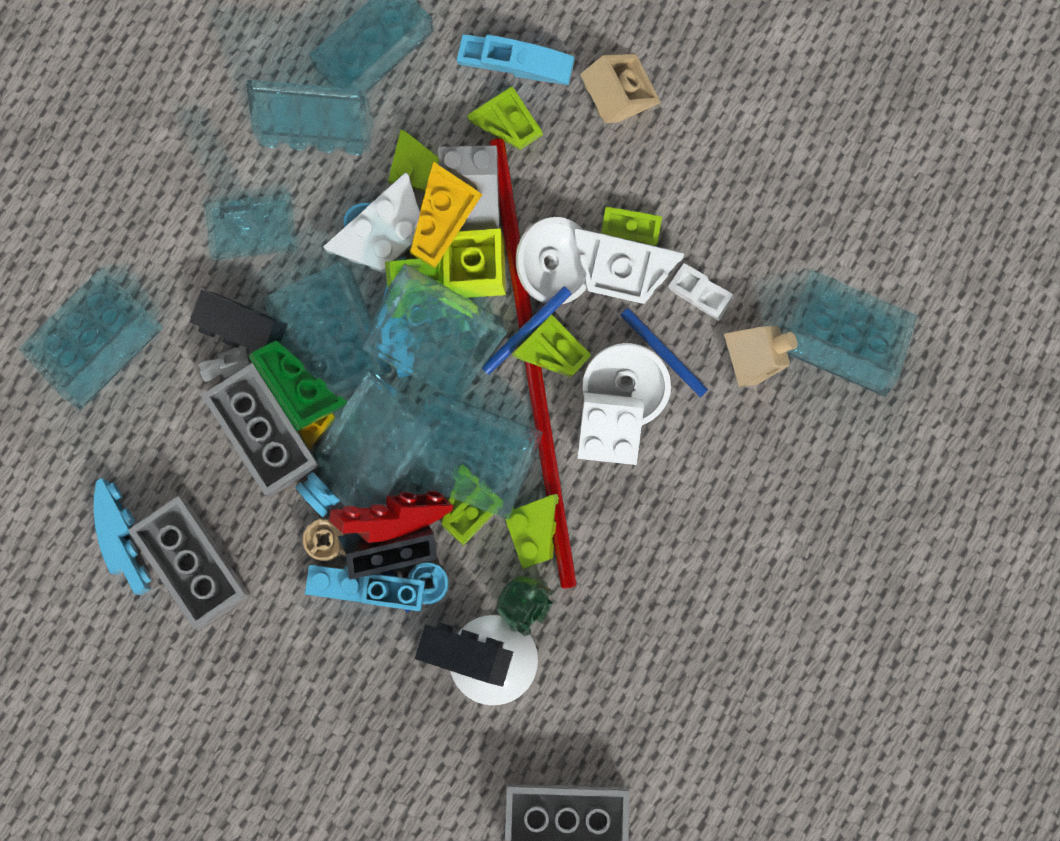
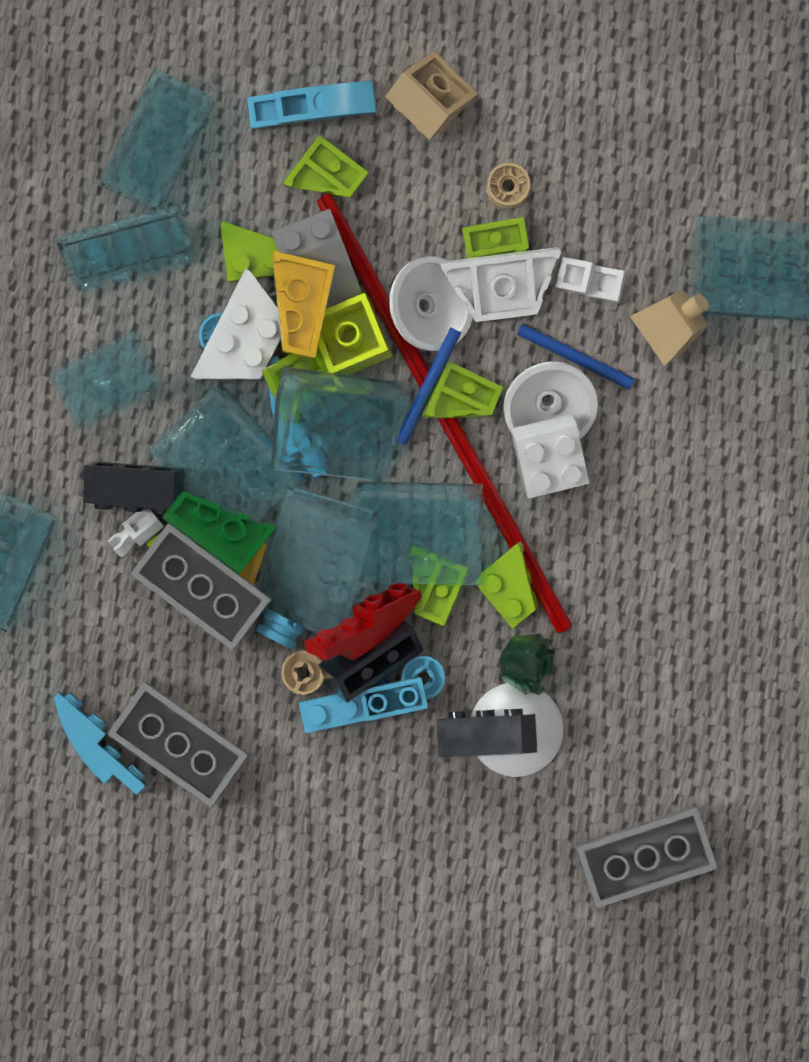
camera: 15 degrees left, 5 degrees up
(653, 176) = (519, 179): none -> tan wheel

